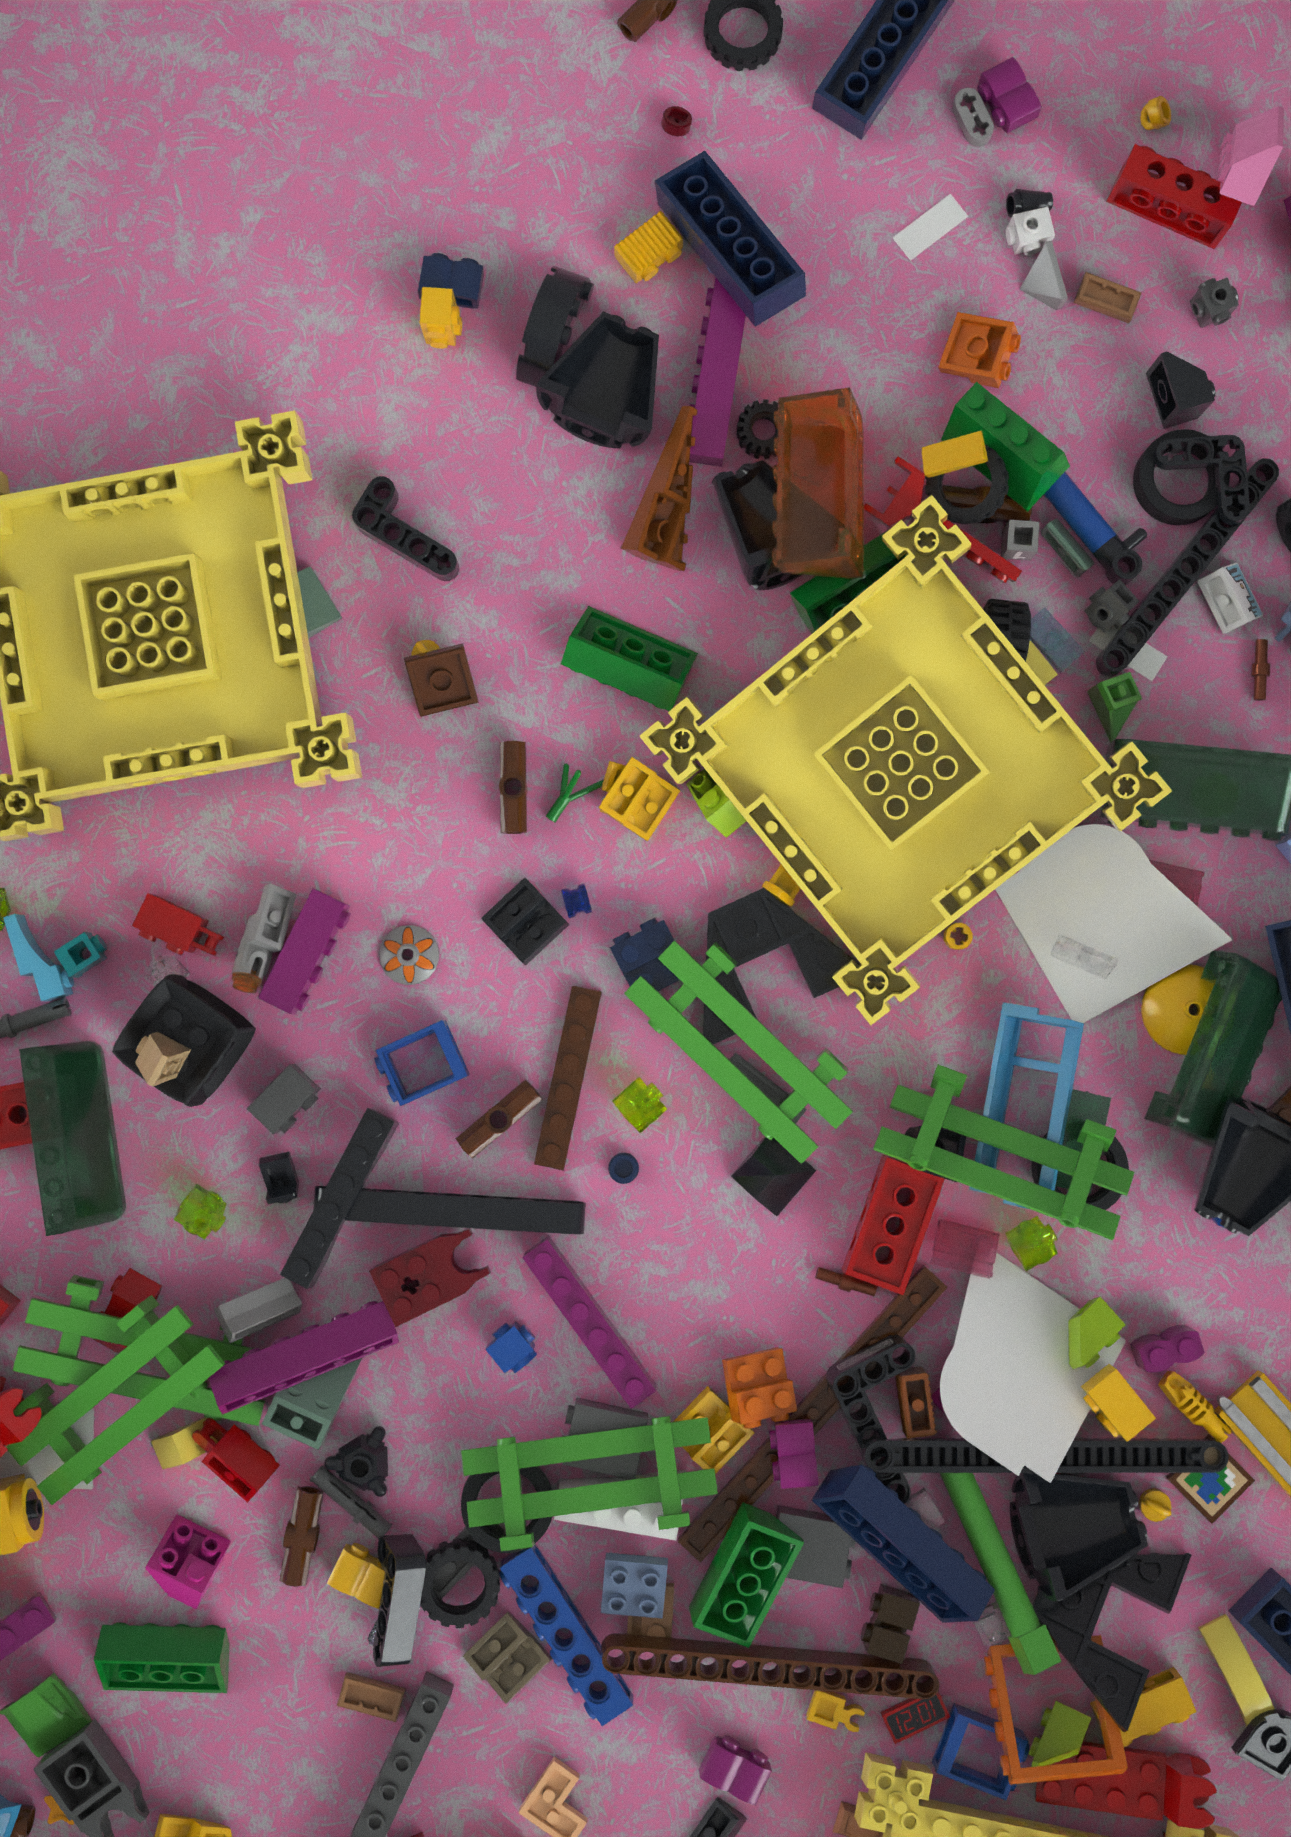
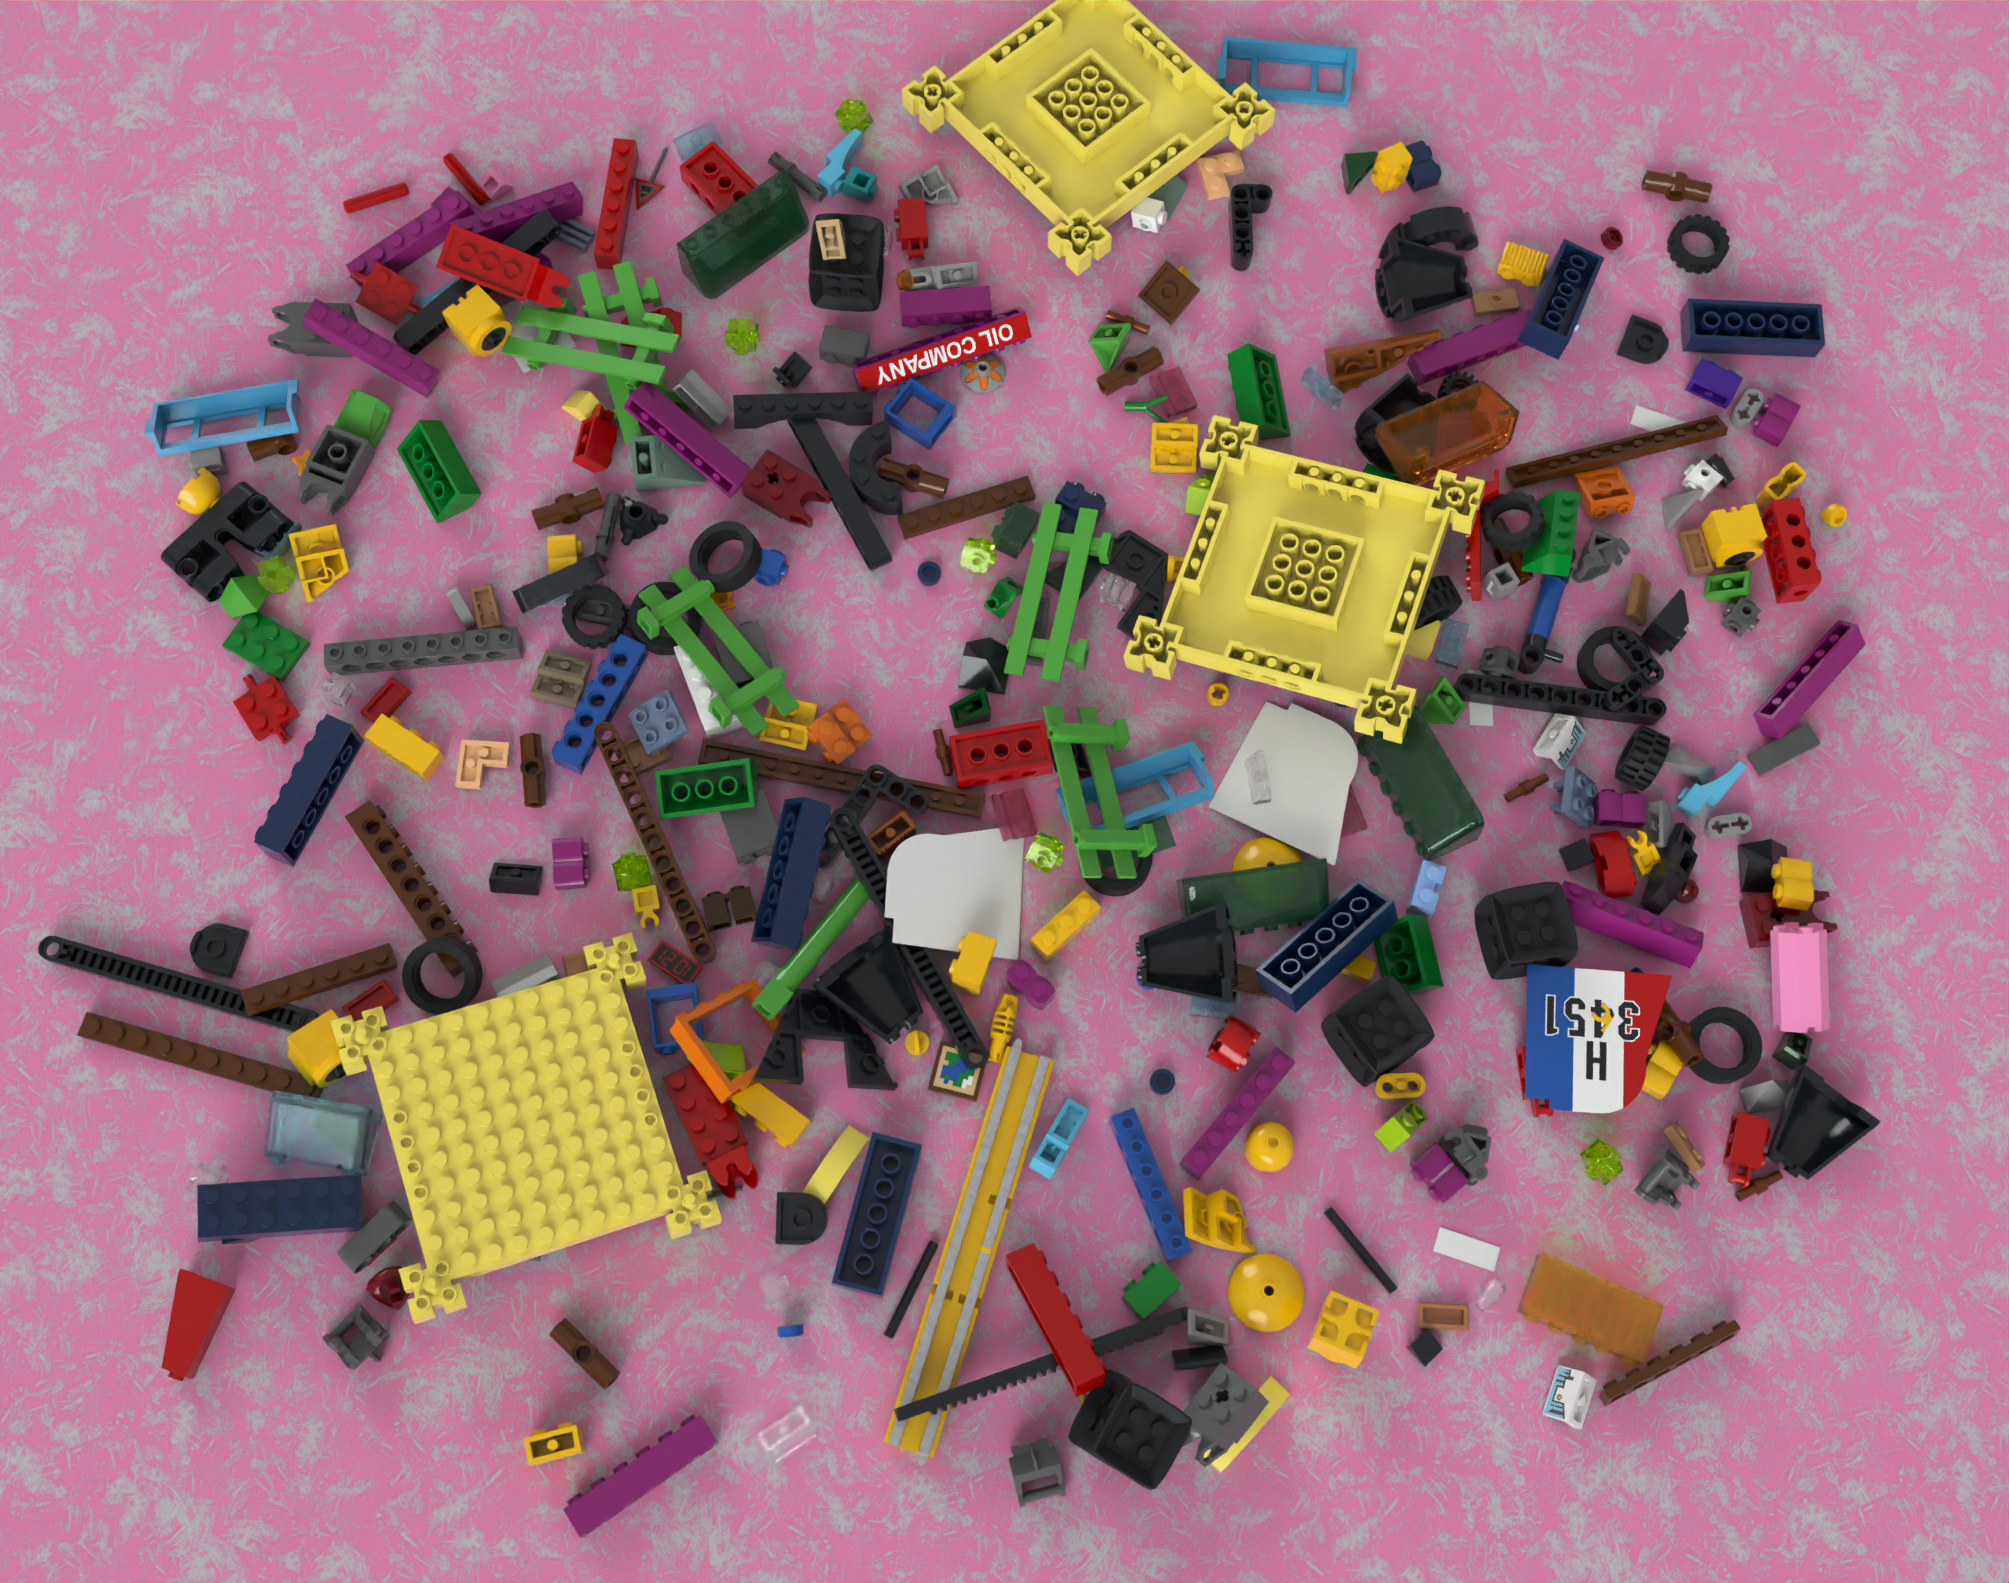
camera: 55 degrees right, 15 degrees down
(132, 874) = (930, 186): none -> light grey slope
(187, 1560) = (511, 449): dark pink slope -> none
(209, 335) = (1289, 53): none -> dark azure piece
(309, 521) = (1214, 170): none -> light nougat plate
(328, 639) = (1149, 215): none -> white brick
(353, 1726) = (460, 607): none -> light grey beam
(359, 992) = (941, 351): none -> brick
(409, 357) = (1356, 167): none -> dark green slope
(447, 749) = (1138, 326): none -> copper bar
(451, 1418) = (710, 540): none -> black tyre
(454, 1172) = (871, 489): none -> black brick
(461, 789) = (1109, 342): none -> bright green slope
(523, 1415) = (727, 603): none -> light orange plate
(525, 921) = (1049, 427): black slope -> none
(565, 752) = (1176, 388): none -> clear pink plate
(576, 900) = (1083, 447): clear blue wheel -> none
(590, 1322) = (816, 604): magenta brick -> none
(621, 1760) = (534, 783): none -> reddish brown piece
(634, 1043) = (1015, 529): none -> clear green brick
(665, 582) = (1322, 388): none -> clear light blue plate
(674, 309) = (1495, 301): none -> medium nougat plate
(704, 1104) = (1003, 596): none -> green bracket
(774, 973) = (1117, 592): none -> clear brick
(788, 1710) = (631, 872): none -> clear neon green brick
(795, 1453) = (809, 775): magenta brick -> none
(817, 1222) = (971, 709): none -> dark green slope
(822, 175) = (1643, 341): none -> black tile
(924, 133) = (1713, 383): none -> dark purple brick
(939, 301) = (1616, 451): none -> reddish brown plate
(954, 454) = (1522, 498): yellow slope -> none
(1053, 407) = (1598, 554): none -> dark grey piece
(1067, 547) = (1519, 619): sand green slope -> none
(1090, 1331) = (1012, 925): lime slope -> none
(1094, 149) = (1781, 485): none -> yellow brick
(1124, 244) = (1734, 536): none -> yellow piece
(1124, 399) = (1638, 598): none -> medium nougat plate
(1126, 1274) = (1065, 926): none -> yellow brick
(1167, 285) = (1729, 585): none -> bright green slope
(1250, 155) = (1843, 573): bright pink slope -> none

